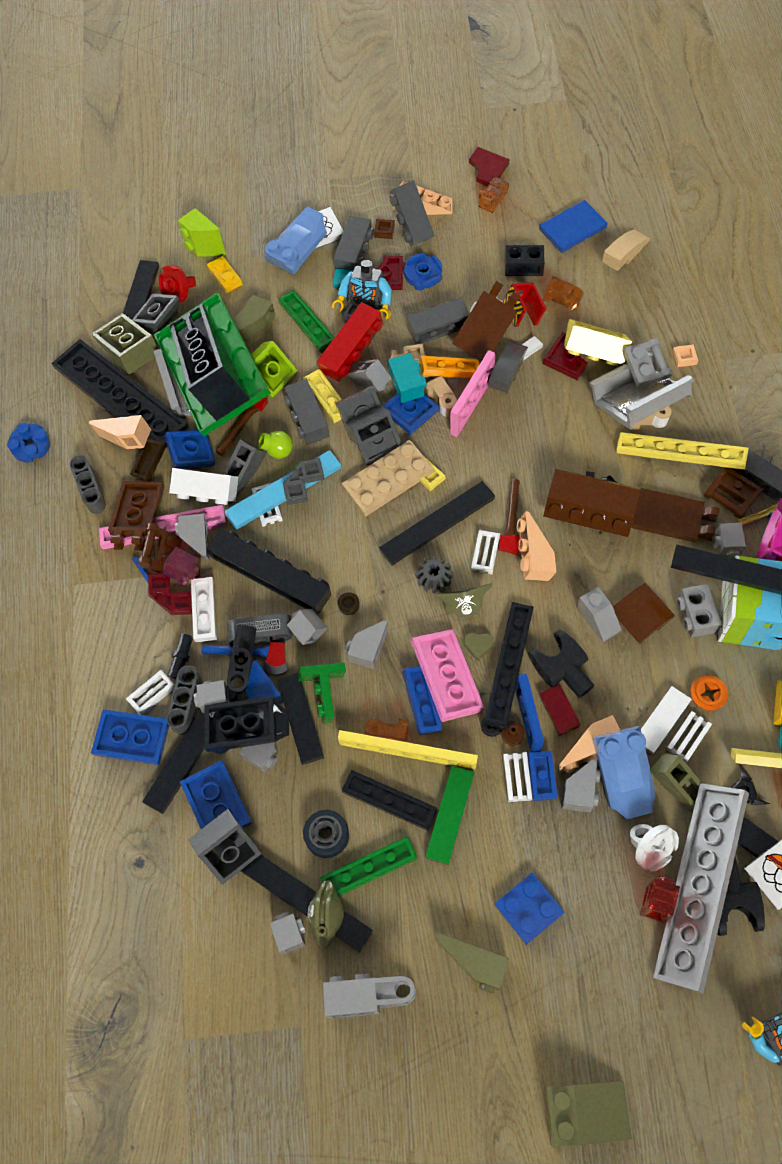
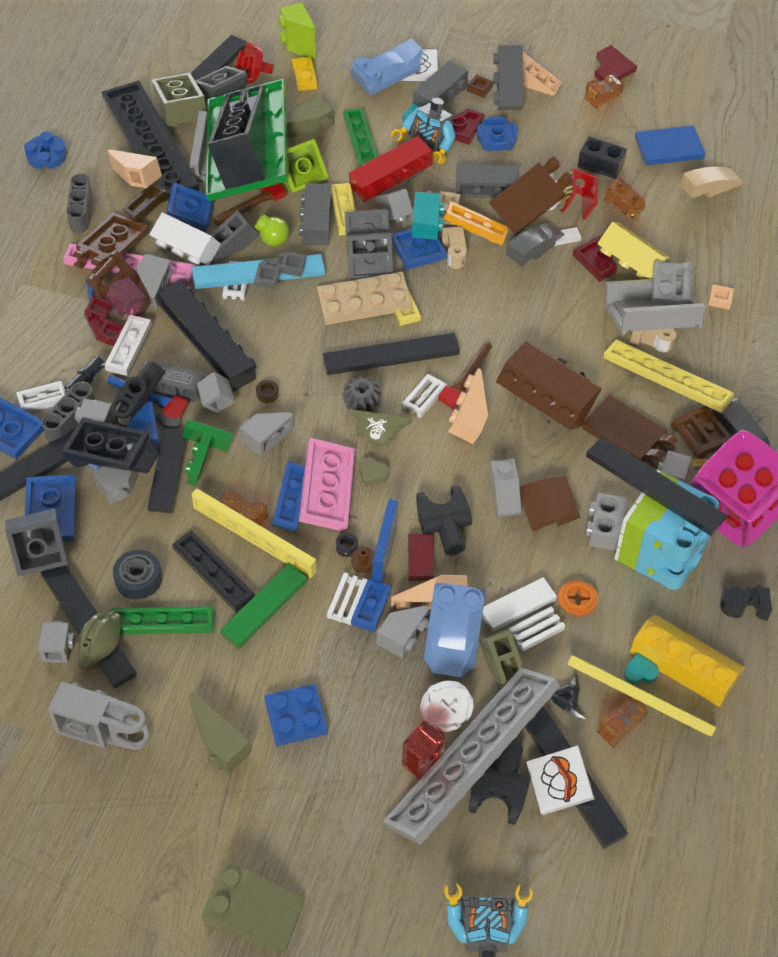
camera: 15 degrees right, 10 degrees down
(472, 394) = (481, 252): bright pink tile -> none
(508, 666) = (401, 488): black tile -> none

